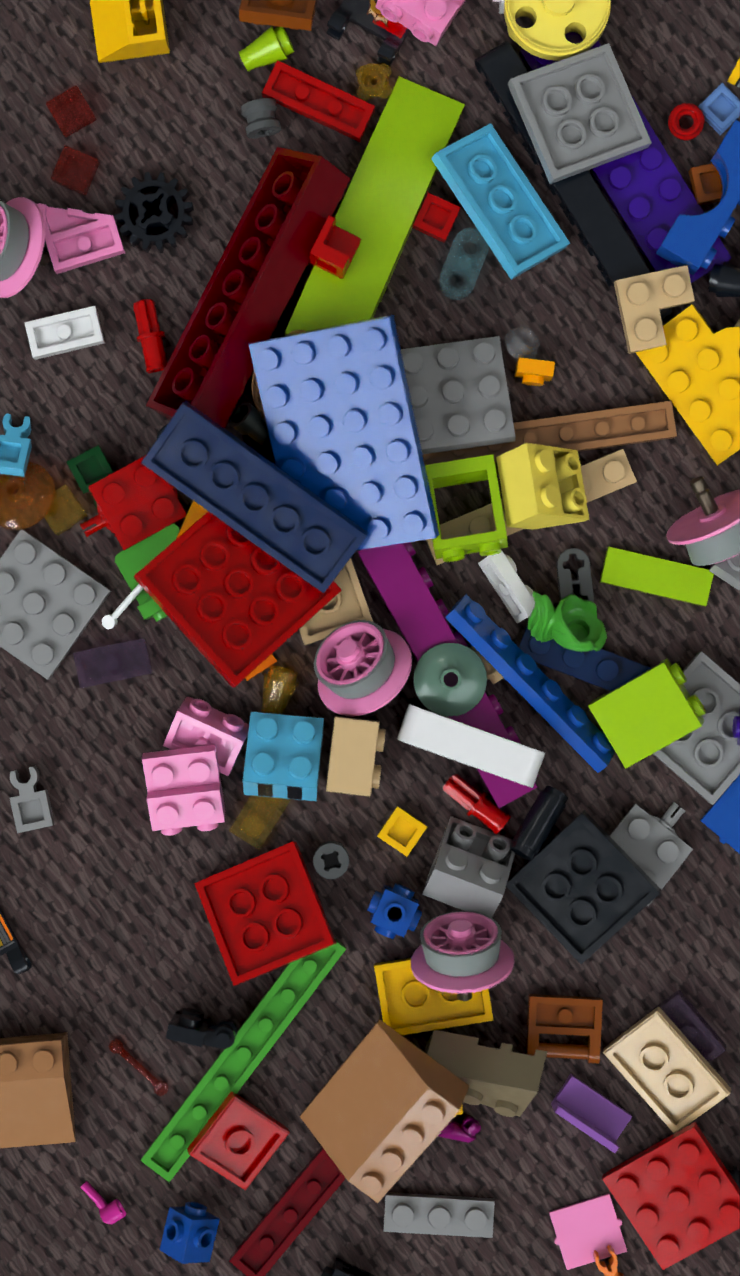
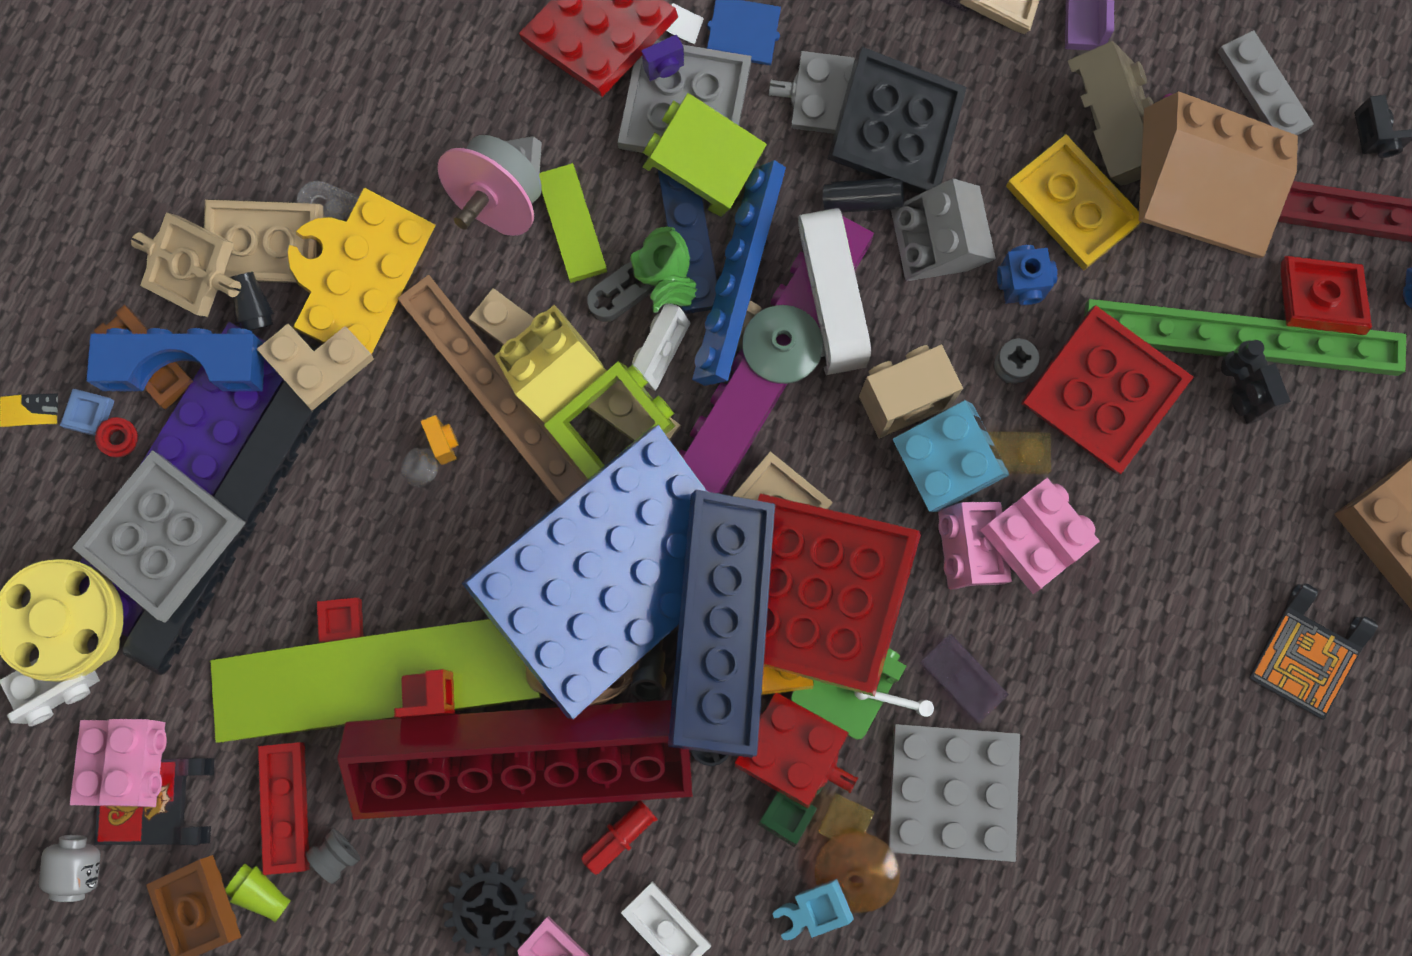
camera: 115 degrees left, 10 degrees down
(32, 807) = (1151, 674): light grey plate -> none
(160, 1087) = (1323, 396): clear red hinge -> none
(278, 689) = (891, 503): clear yellow cone -> none
(361, 668) = (823, 429): bright pink piece -> none
(370, 72) = (226, 772): clear yellow plate -> none
(402, 831) = (948, 313): yellow plate -> none
(459, 394) = (500, 490): light grey plate -> none
(462, 954) = (1031, 185): bright pink piece -> none
(463, 264) = (373, 567): clear light blue plate -> none
(476, 803) = (880, 262): red axle -> none
(500, 201) = (289, 566): medium azure plate -> none
(565, 1017) = (1021, 78): dark orange plate -> none

